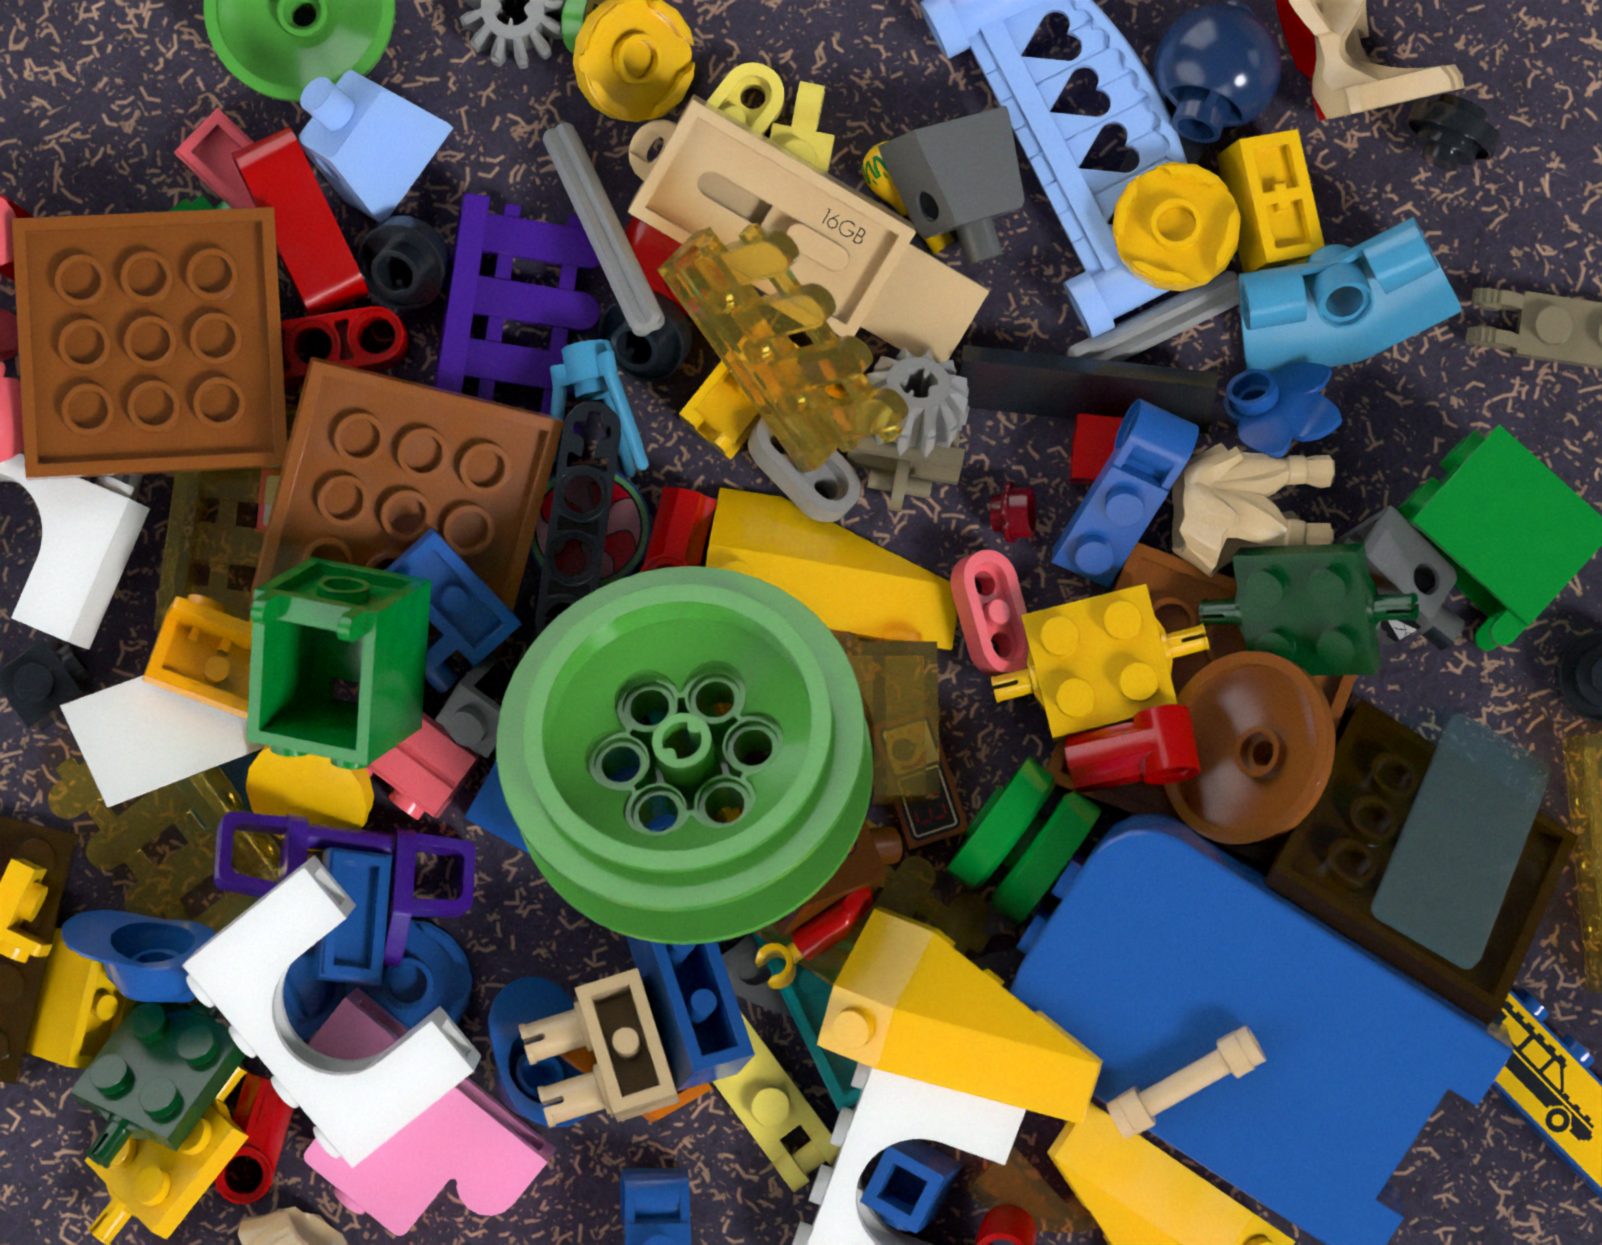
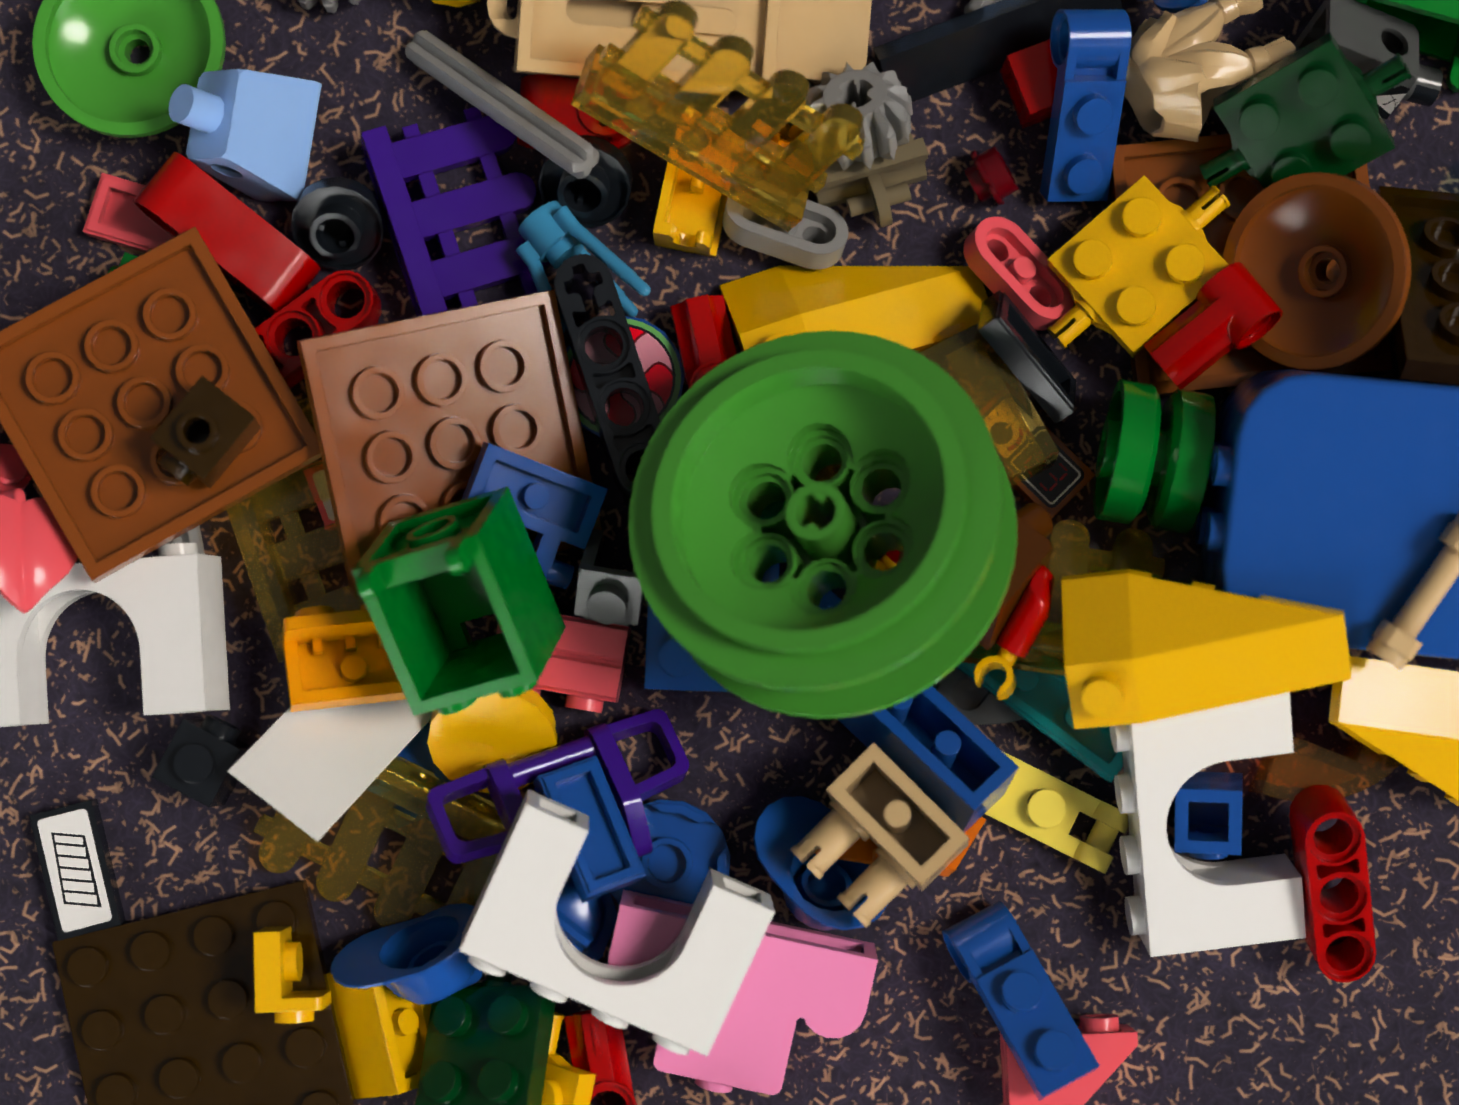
camera: 25 degrees left, 0 degrees up
(187, 400) = (203, 434): none -> dark brown brick
(959, 693) = (1027, 356): none -> black tile

